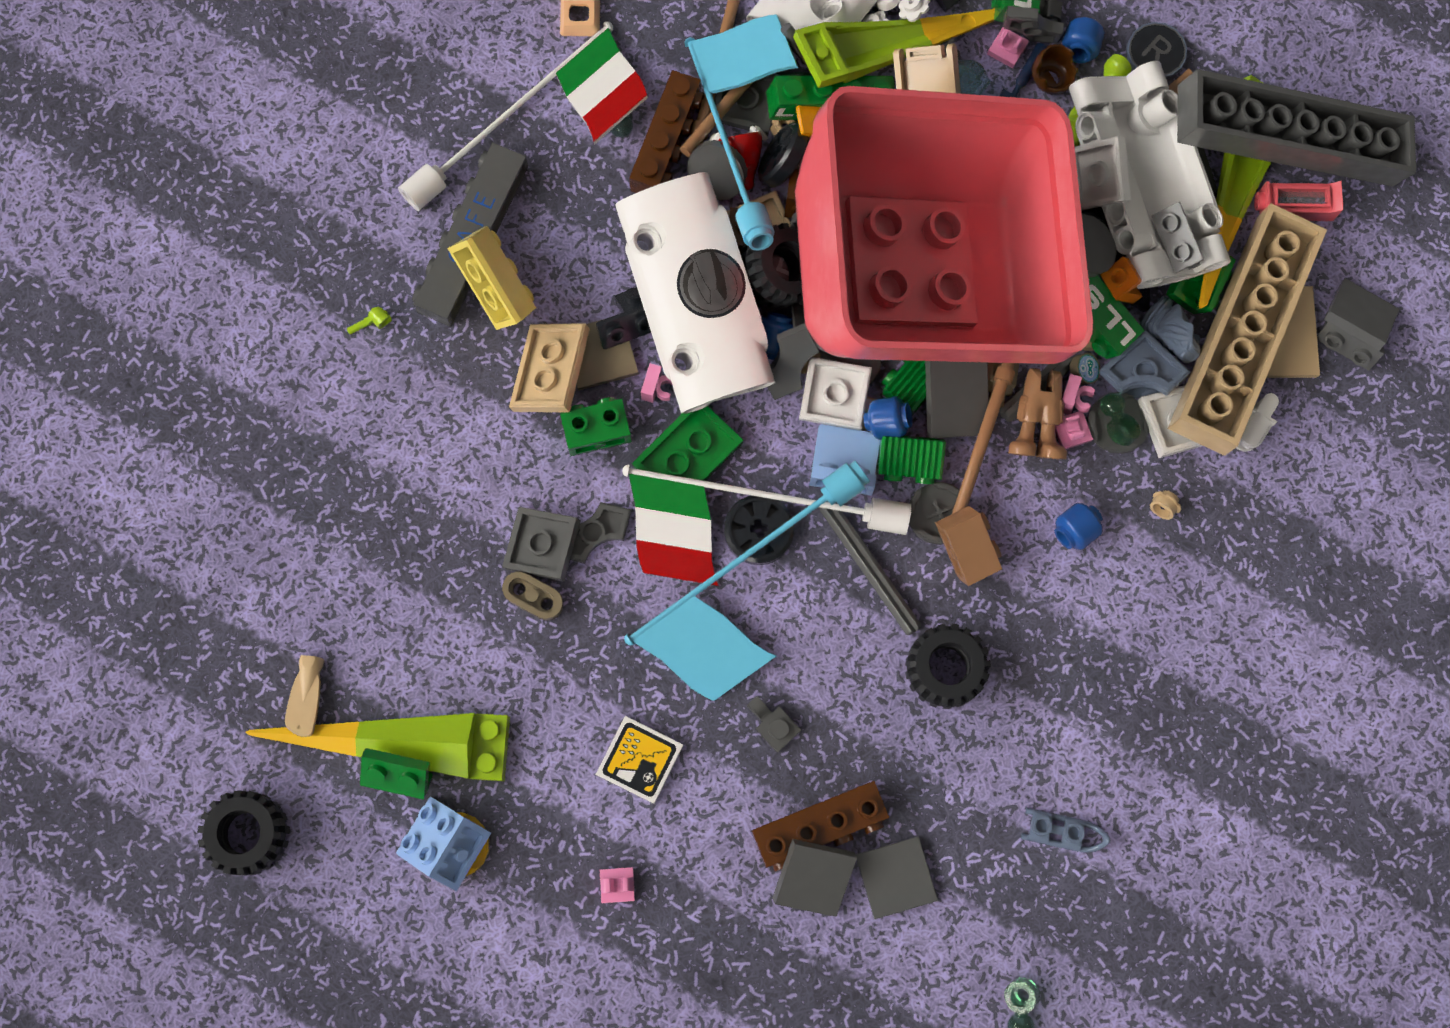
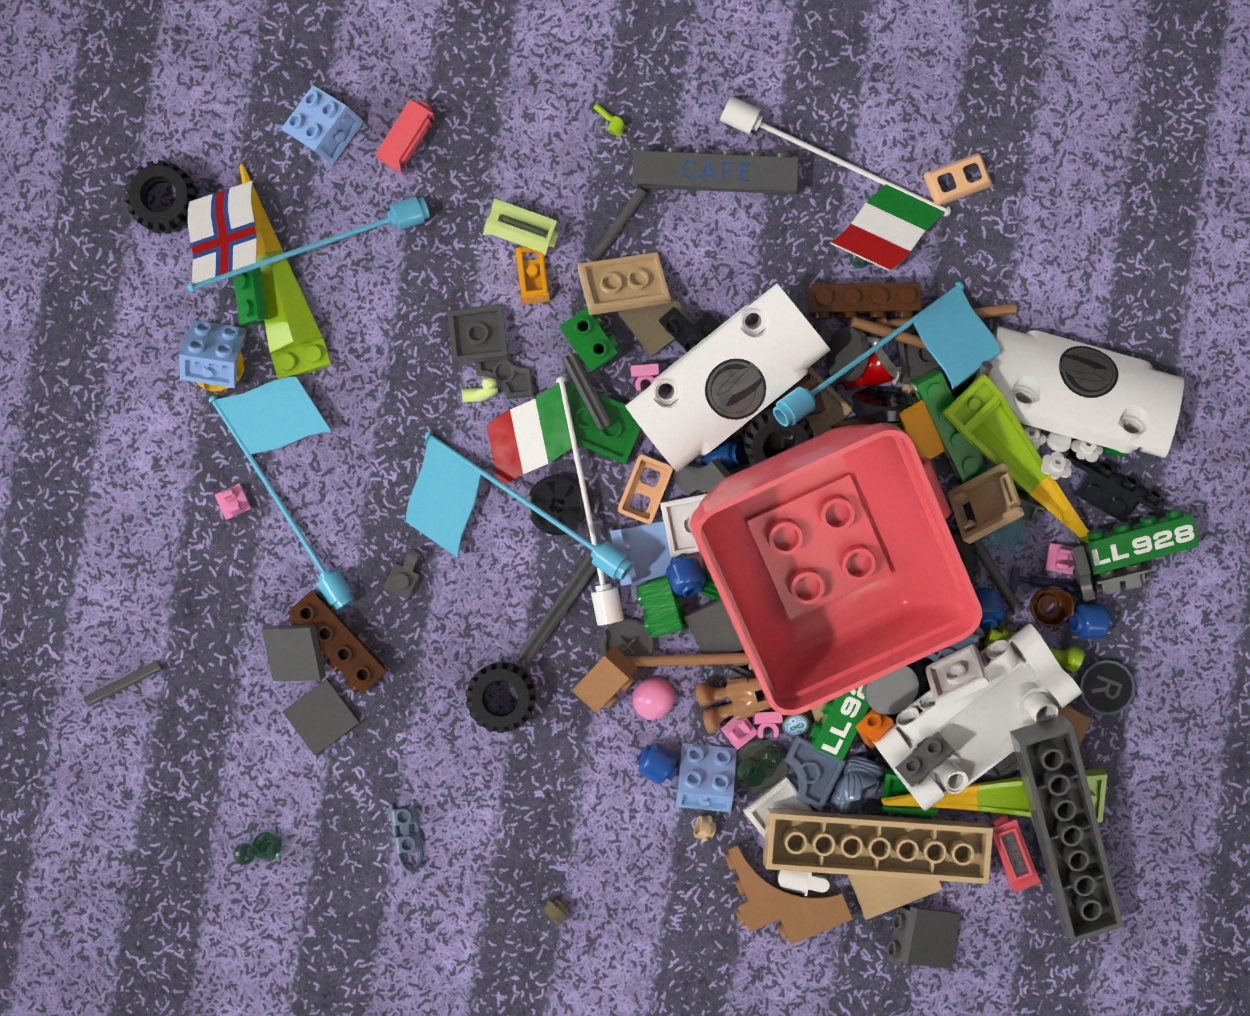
camera: 70 degrees right, 10 degrees up
(241, 624) = (323, 124): none -> light blue bracket
(293, 538) = (405, 135): none -> coral window
(304, 697) = (284, 198): tan piece -> none
(319, 772) = (226, 237): none -> flag
(443, 452) = (521, 226): none -> yellowish green window
(483, 353) = (619, 223): none -> dark grey bar
(493, 278) = (679, 208): light yellow slope -> none
(502, 463) = (532, 277): none -> light orange slope
(533, 596) = (433, 345): dark tan plate -> none
(543, 807) = (268, 421): none -> medium azure flag
(606, 566) = (480, 394): none -> yellowish green arm
(639, 759) = (336, 481): tile -> none
(649, 448) = (587, 391): none -> dark grey axle
(786, 423) = (636, 486): none -> light nougat piece
(1005, 506) = (653, 697): none -> bright pink hair
(1112, 481) = (706, 777): none -> light blue bracket
(1203, 697) = (556, 911): none -> dark tan plate
(1270, 469) = (766, 903): none -> medium nougat arch

